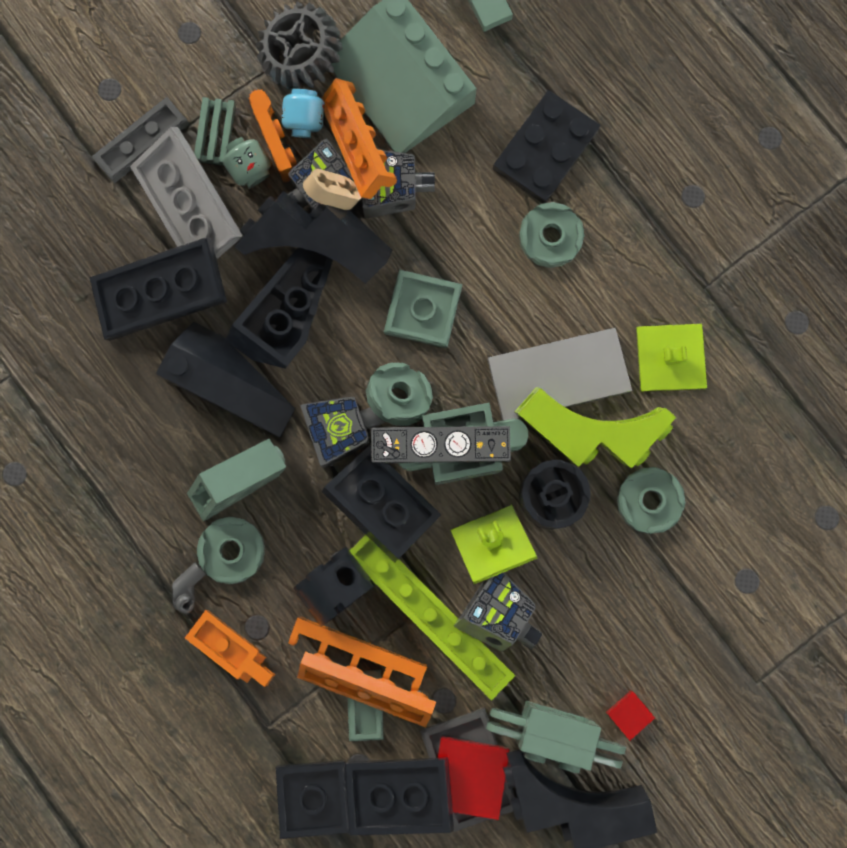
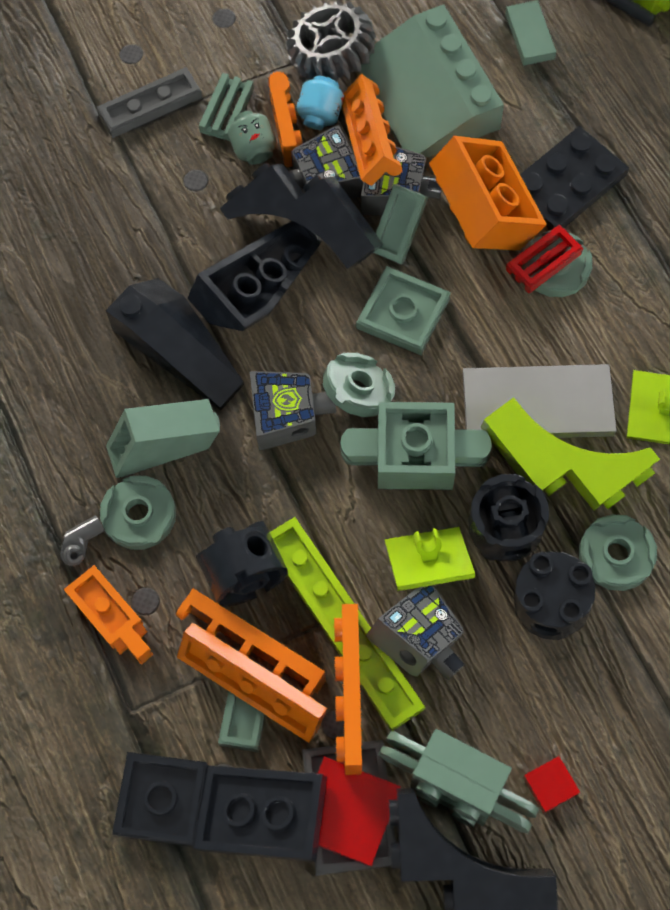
camera: 15 degrees right, 15 degrees down
(158, 289) = (130, 236): black tile -> none
(184, 194) = (181, 161): light grey tile -> none
(331, 189) = (332, 164): tan beam -> none
(381, 504) = (314, 491): black plate -> none
(403, 226) = (400, 222): none -> sand green tile
(441, 444) = (392, 432): tile -> none
(453, 694) = (348, 706): none -> orange plate
(477, 184) = (487, 194): none -> orange brick
(523, 257) = (533, 283): none -> red tile
(606, 555) = (554, 595): none -> black brick

